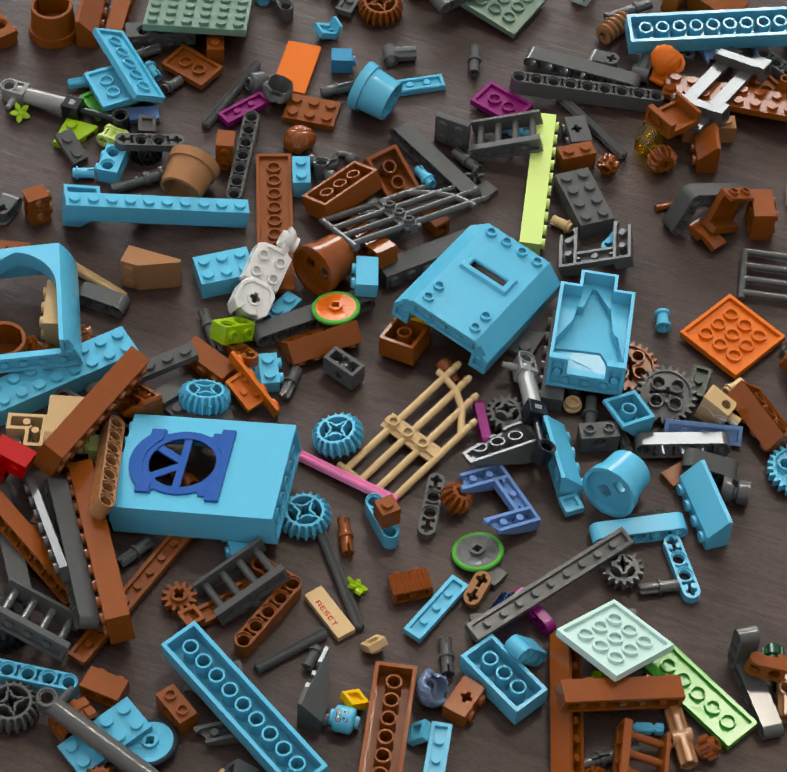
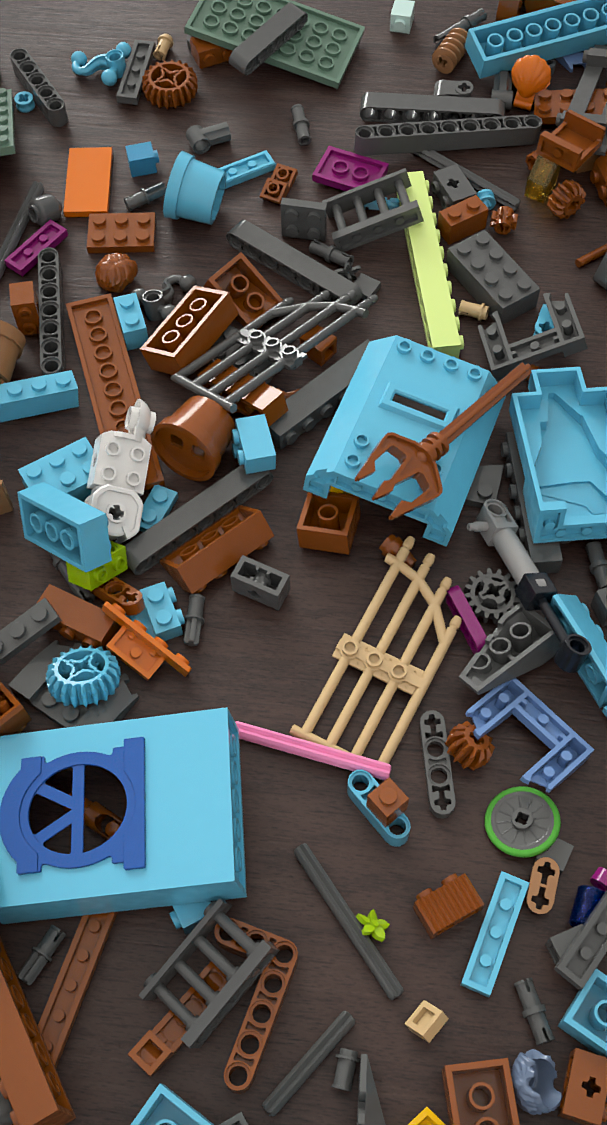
camera: 10 degrees left, 10 degrees up
(178, 597) = (113, 1025): dark orange gear -> none
(216, 298) = (65, 526): none -> medium azure brick
(278, 89) = (72, 212): dark grey hair -> none
(306, 521) = (280, 832): medium azure gear -> none
(328, 30) = (116, 125): medium azure bracket -> none
(329, 613) = (347, 982): tan tile -> none
(335, 308) = (227, 498): orange wheel -> none
(338, 435) = (279, 701): medium azure gear -> none
(345, 536) = (334, 845): dark orange pin -> none
(425, 177) = (287, 287): medium azure pin -> none
(443, 101) = (279, 183): none -> dark orange slope
(474, 304) = (420, 459): none -> dark orange piece
(572, 404) = (572, 559): tan plate -> none
(603, 146) = (487, 198): none -> medium azure bush

